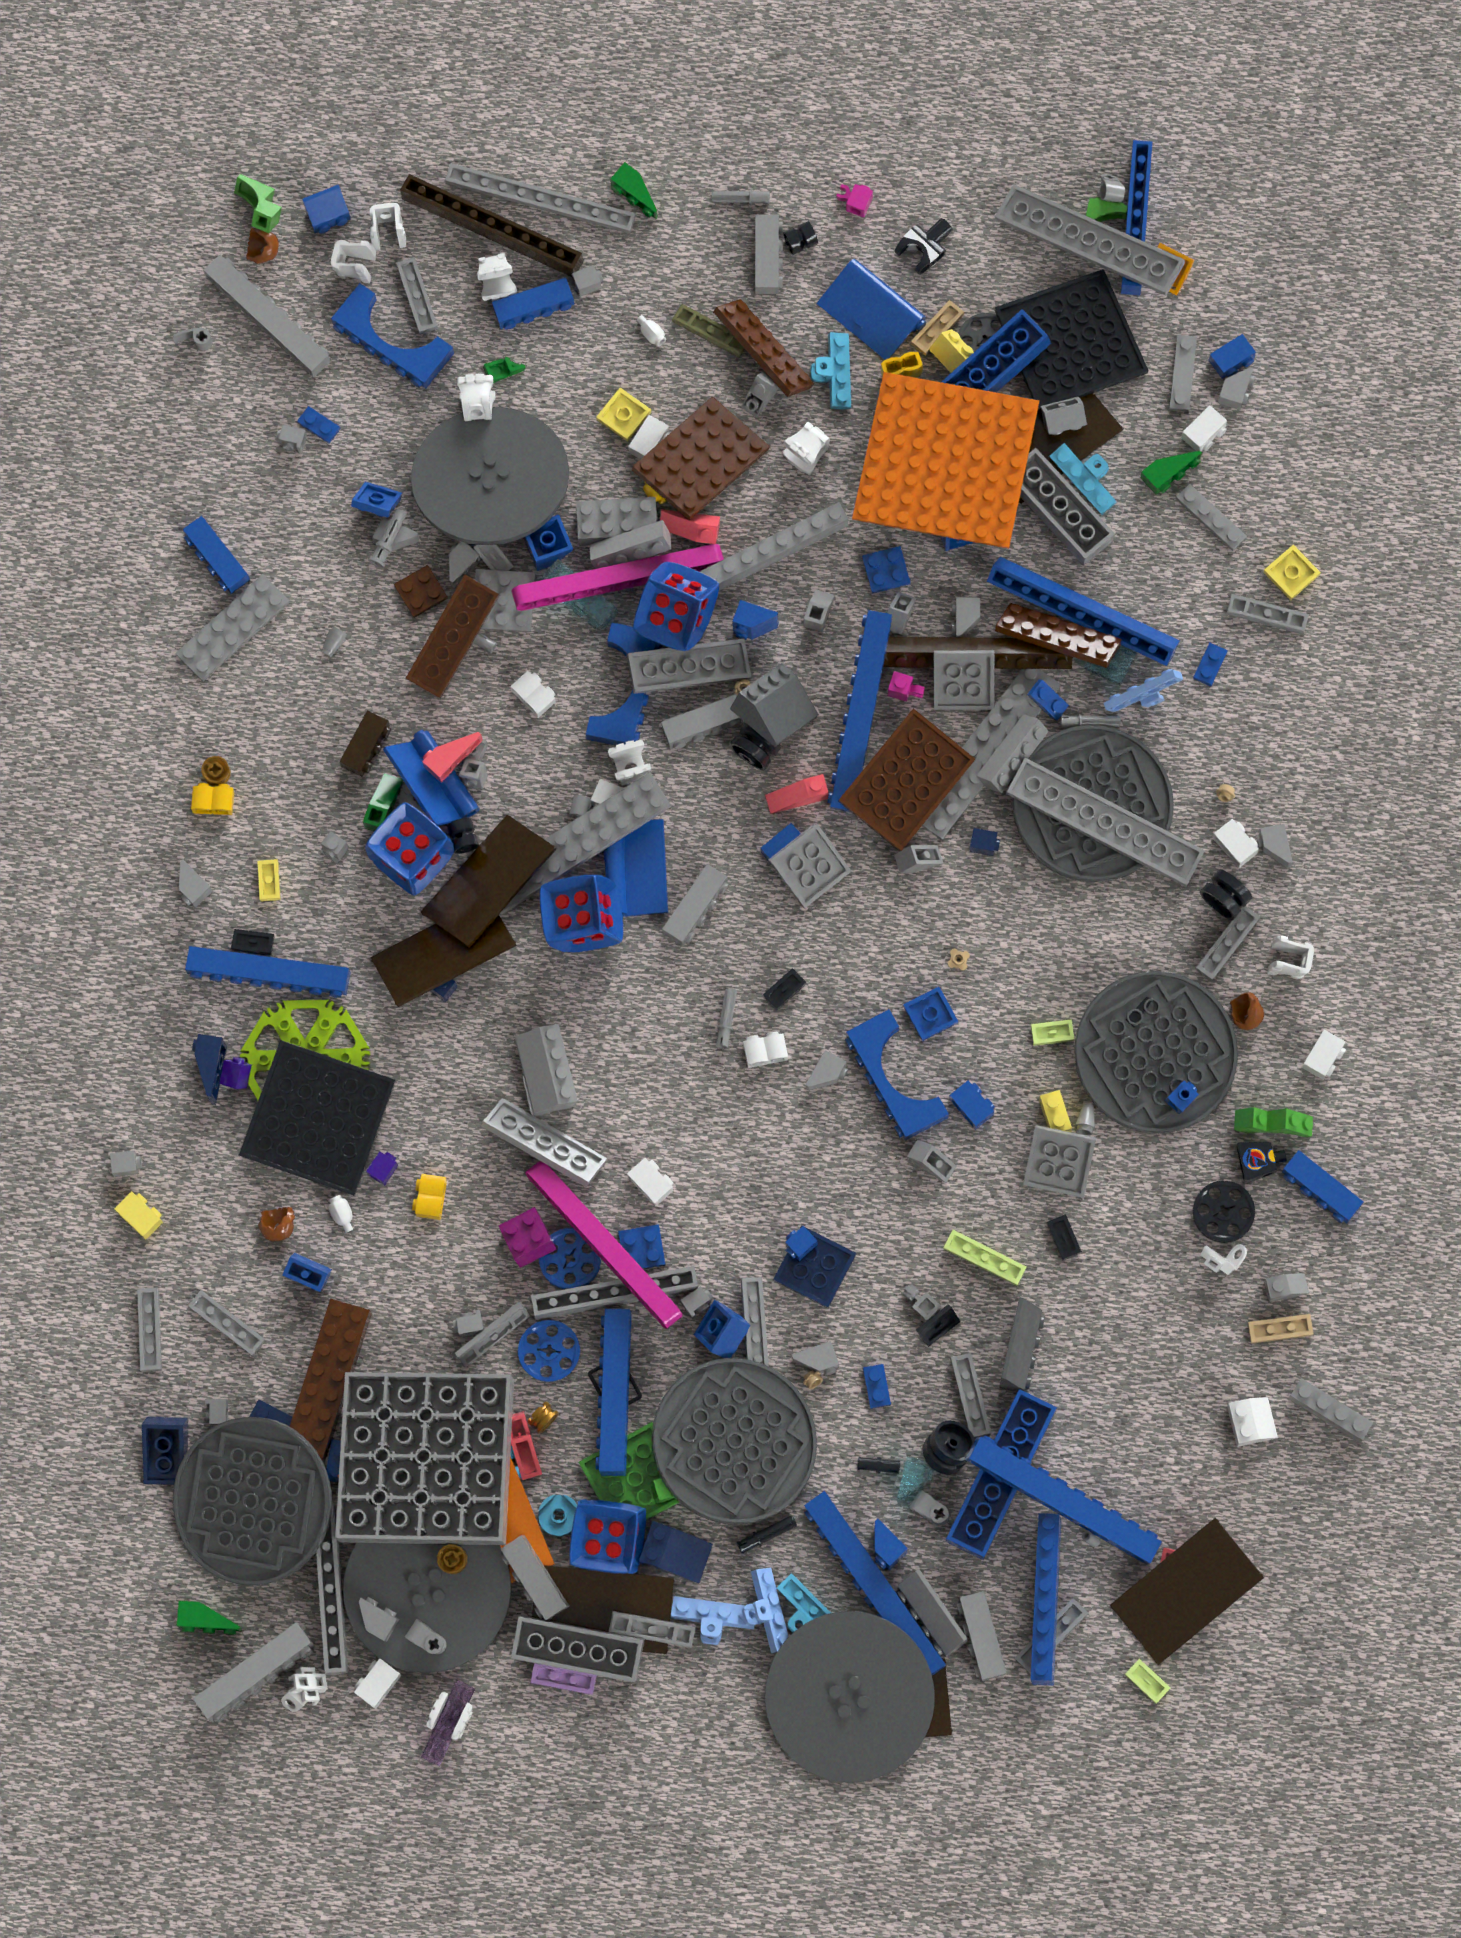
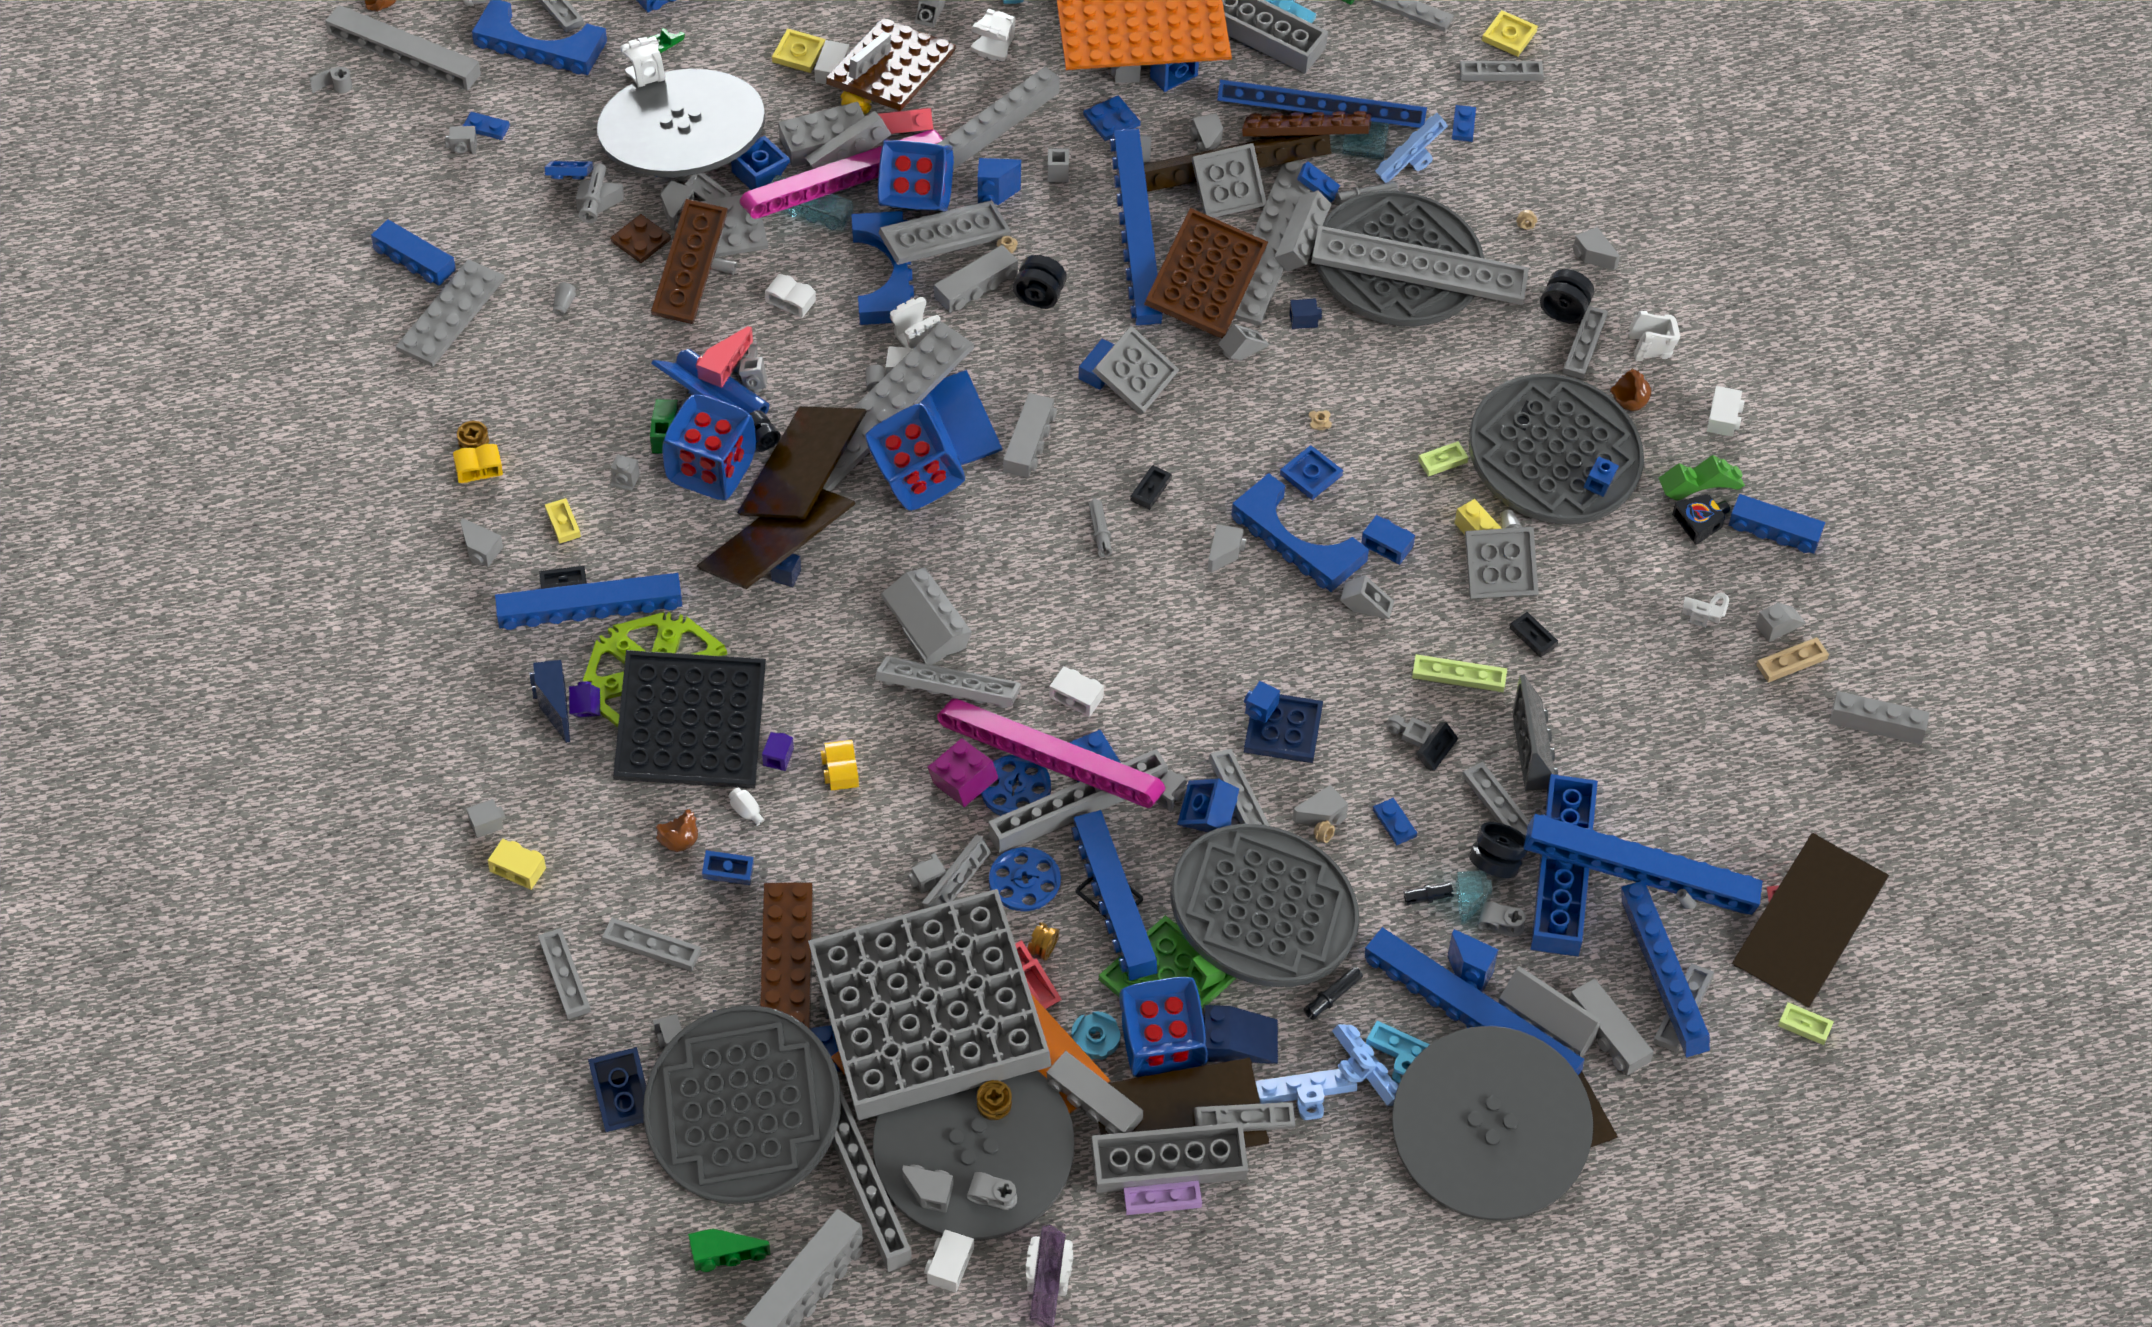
camera: 25 degrees left, 20 degrees down
(299, 1694) = (868, 1287): white piece -> none
(365, 744) = (627, 377): dark brown brick -> none
(678, 454) = (870, 55): none -> light grey plate
(765, 1049) = (1152, 544): white brick -> none
(775, 705) = (1046, 237): dark grey slope -> none
(798, 794) = (1101, 315): coral slope -> none
(902, 686) = (1167, 204): dark pink brick -> none
(1221, 1221) = (1687, 580): black wedge -> none
(1236, 843) = (1554, 255): white brick -> none
(1251, 1421) = (1800, 750): white slope -> none

